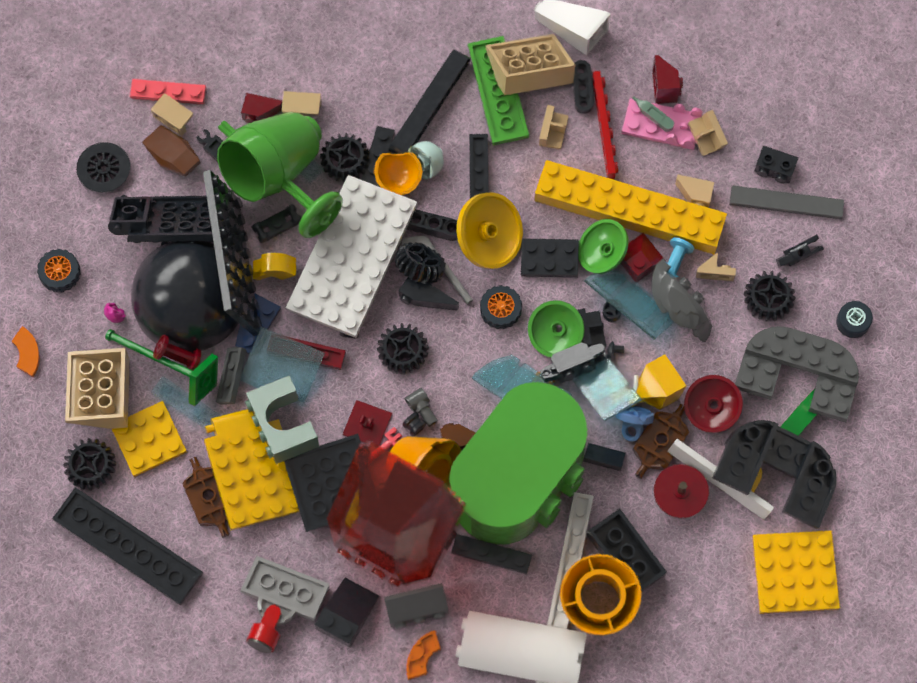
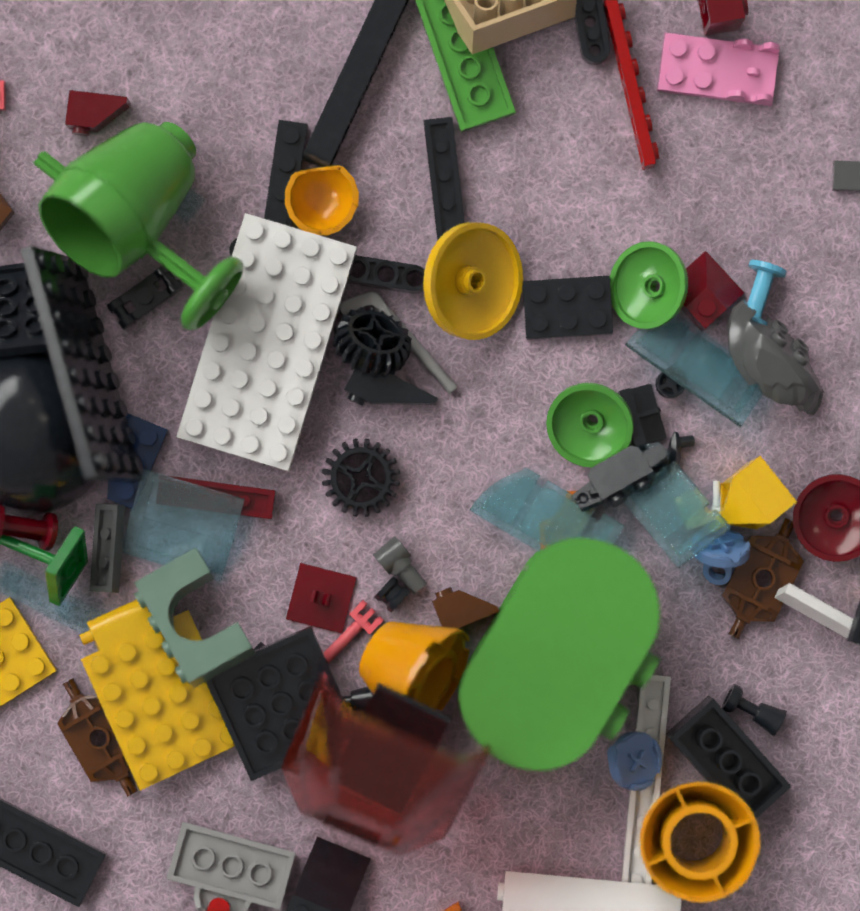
camera: 10 degrees left, 15 degrees up
(211, 144) = (31, 180): black plate -> none
(274, 264) = (150, 368): yellow brick -> none
(301, 103) = (157, 98): tan panel -> none
(332, 151) = (224, 174): black gear -> none
(416, 606) = (427, 875): dark grey slope -> none
(430, 157) = (367, 167): light aqua cylinder -> none
(491, 554) = (548, 783): black plate -> none
(500, 307) = (502, 395): black wheel -> none
(553, 128) = (552, 95): tan panel -> none
(563, 544) = (634, 760): none -> medium blue tile
(604, 457) = (684, 611): black slope -> none
(630, 206) = (683, 214): yellow brick -> none
(654, 528) = (764, 715): none -> black piece
(655, 114) = (707, 59): sand green piece -> none
(681, 491) = (801, 660): dark red piece -> none
(695, 190) = (781, 177): tan slope -> none
(708, 133) = (791, 80): tan panel -> none
(710, 270) = (814, 302): tan slope -> none

